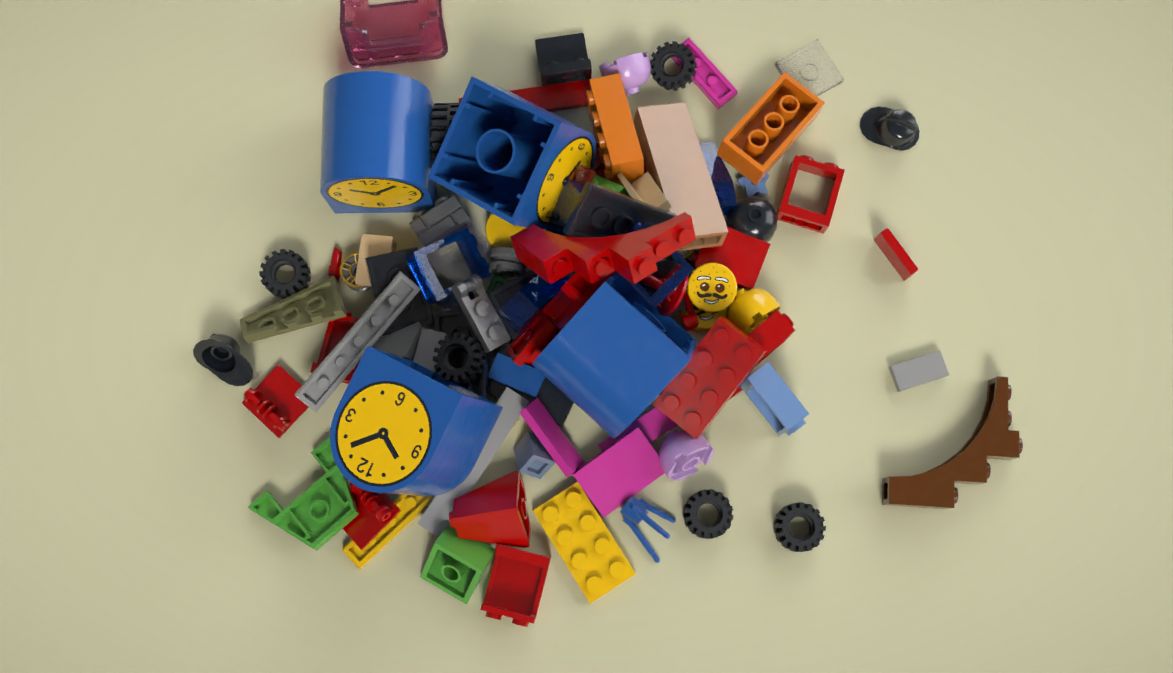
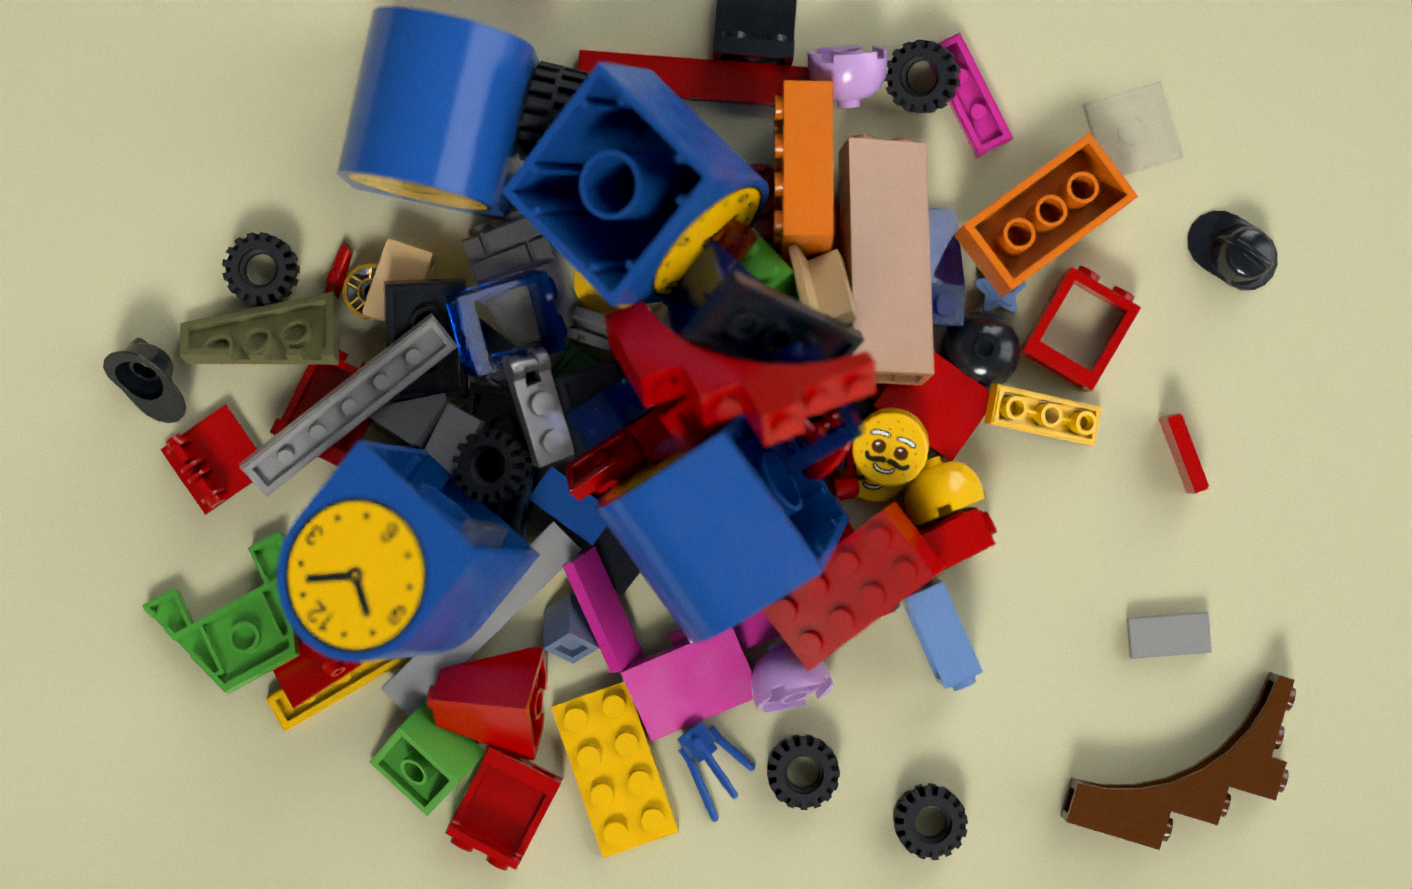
camera: 15 degrees right, 10 degrees up
(801, 250) = (1026, 412): none -> yellow tile

